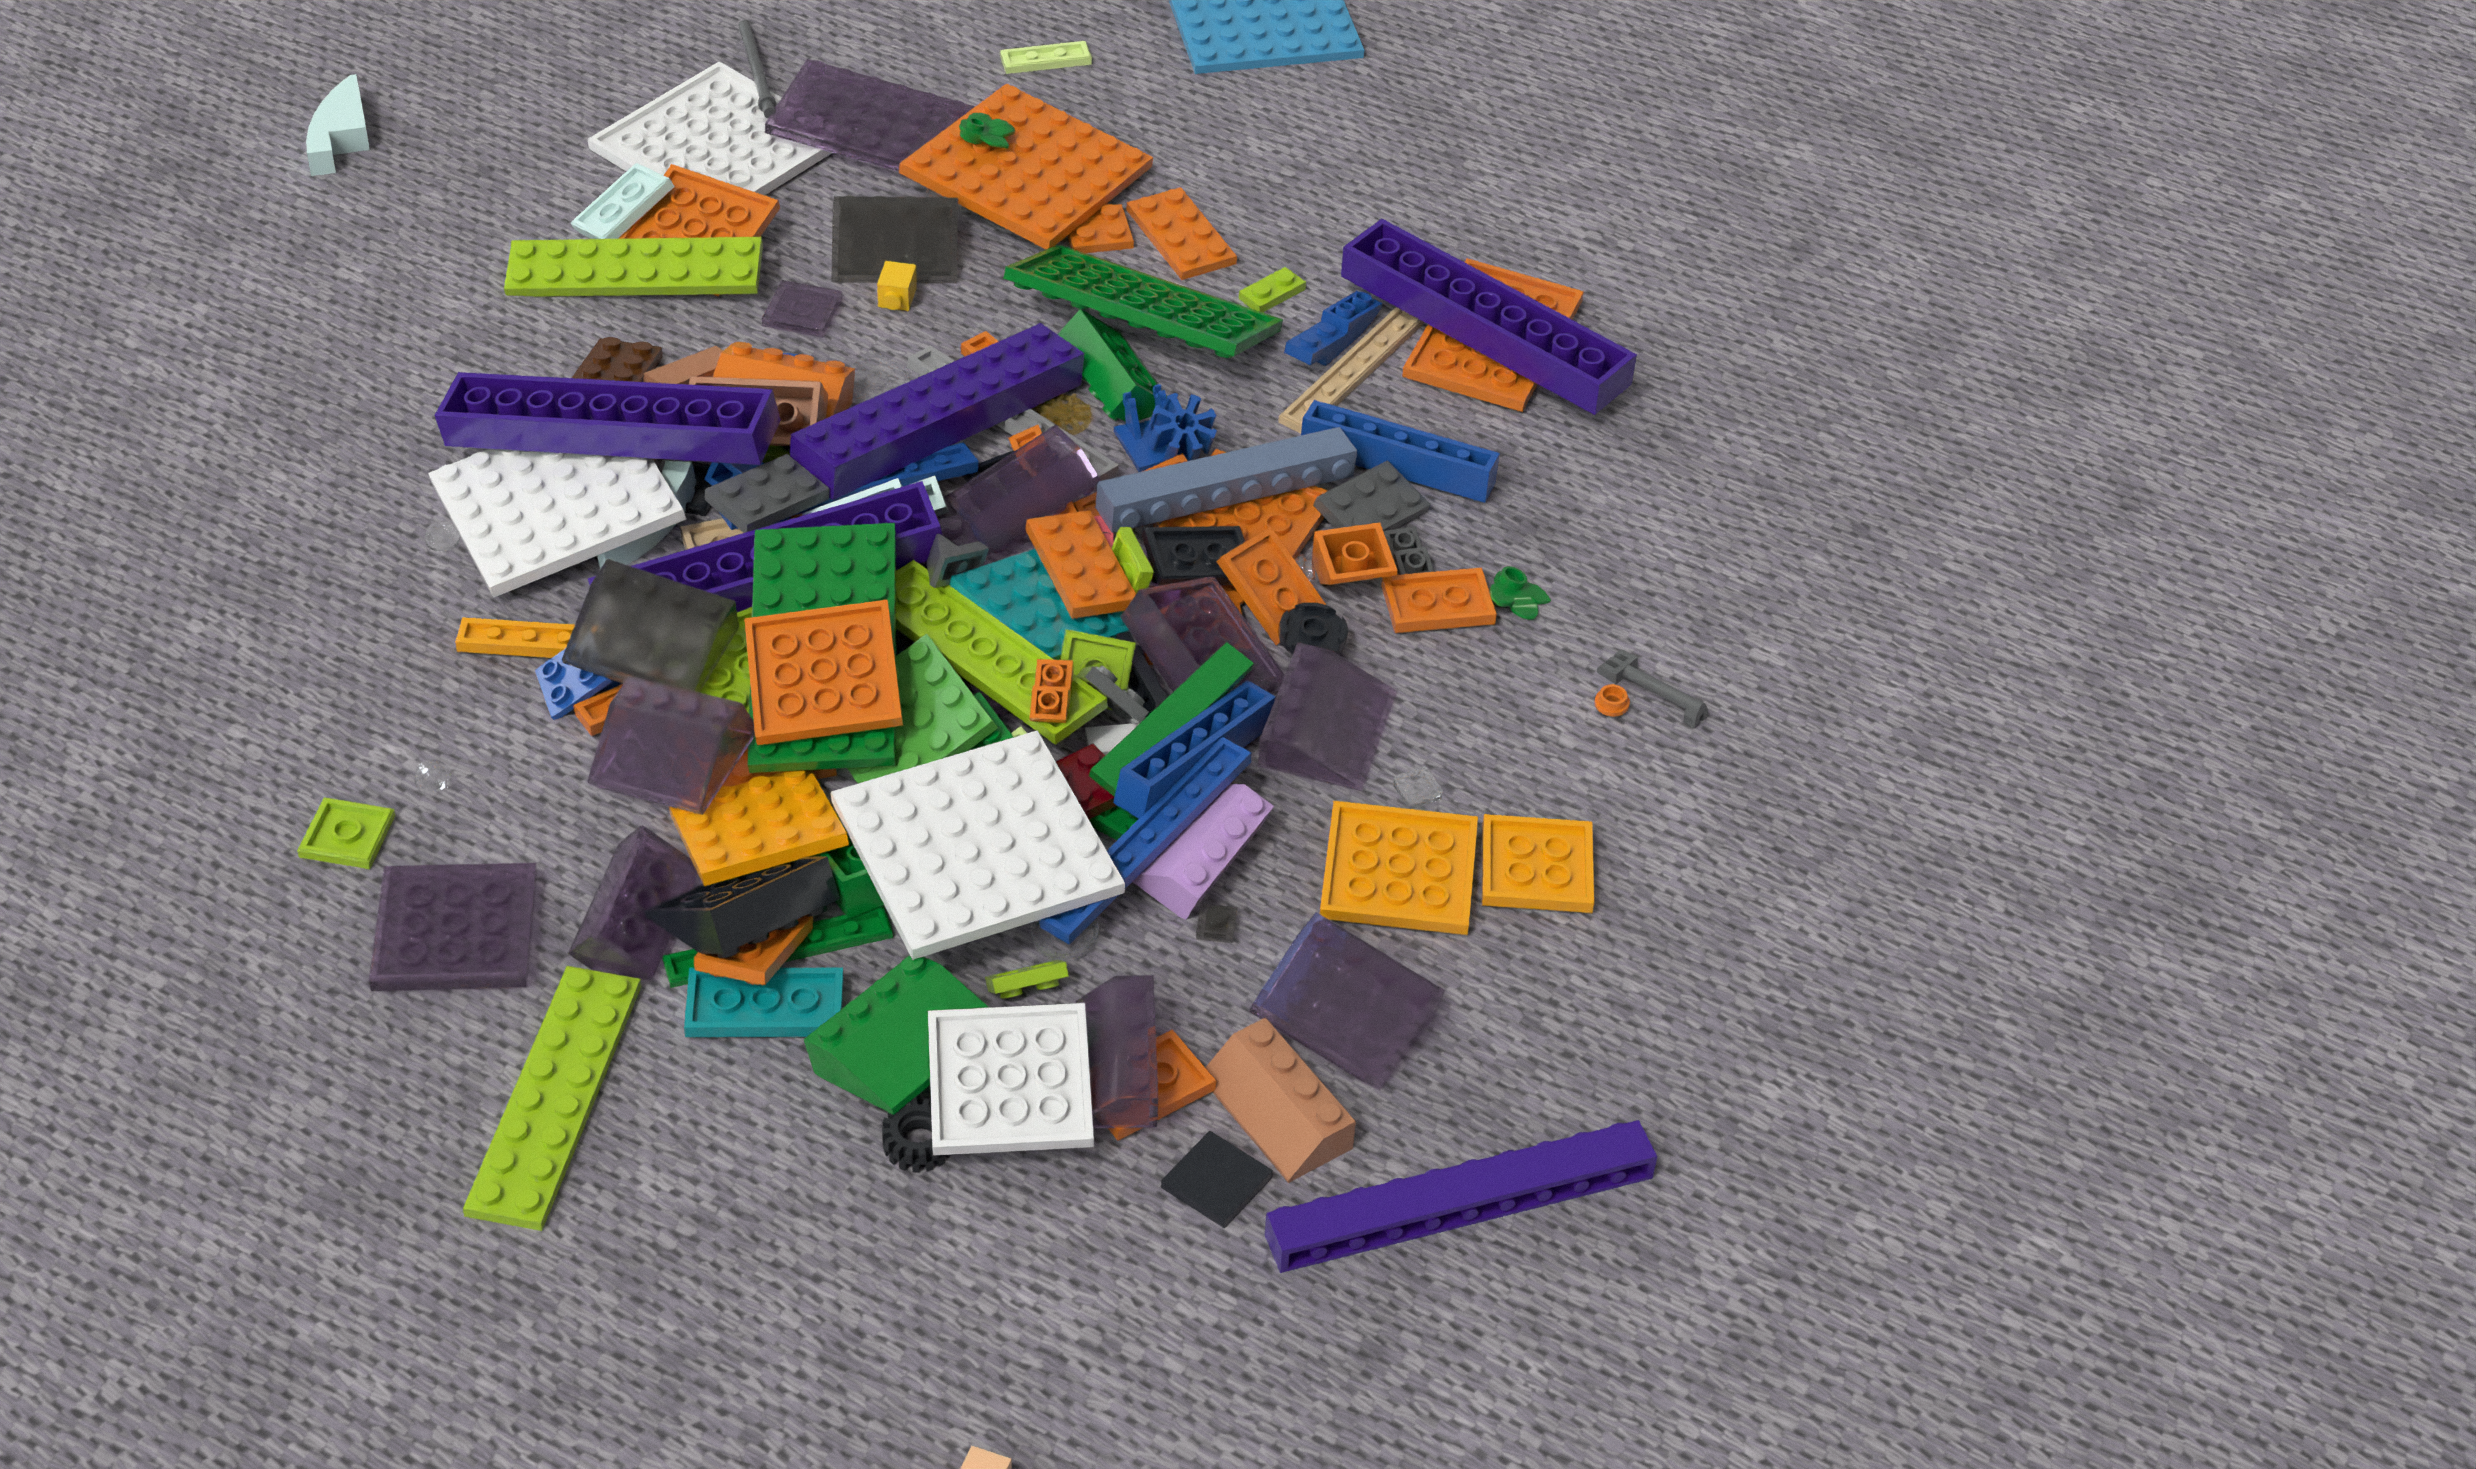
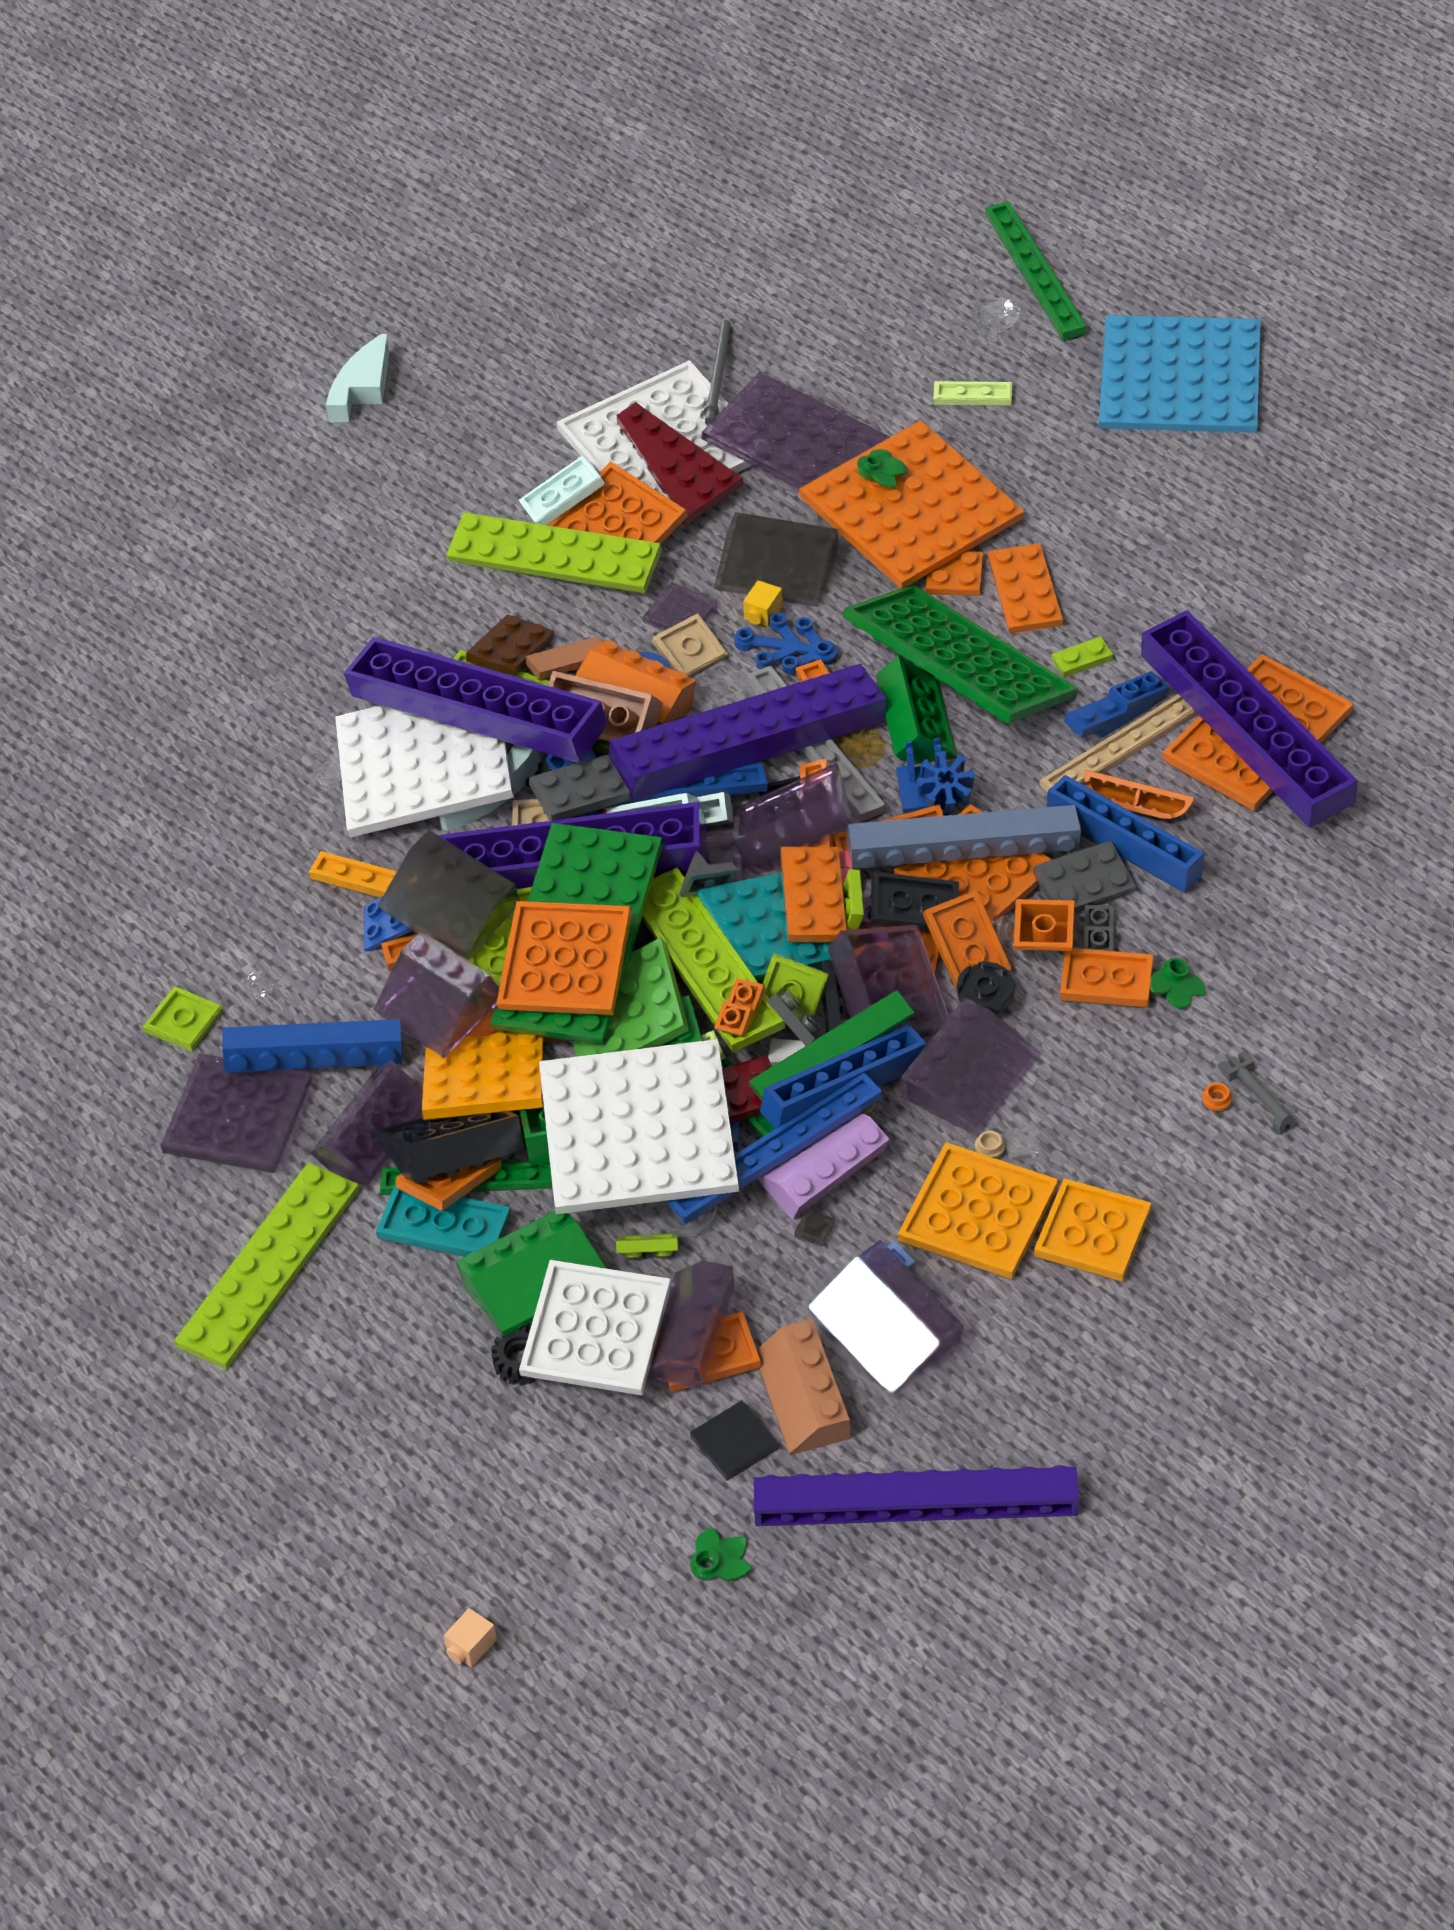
camera: 25 degrees right, 5 degrees up
(527, 831) = (311, 1045): none -> blue brick
(745, 158) = (677, 464): none -> dark red wing
(829, 337) = (689, 646): none -> tan tile
(940, 325) = (746, 640): none -> blue plant
(1254, 1313) = (723, 1555): none -> green plate
(1382, 793) = (990, 1144): none -> tan plate
(1419, 414) = (1139, 796): none -> orange brick

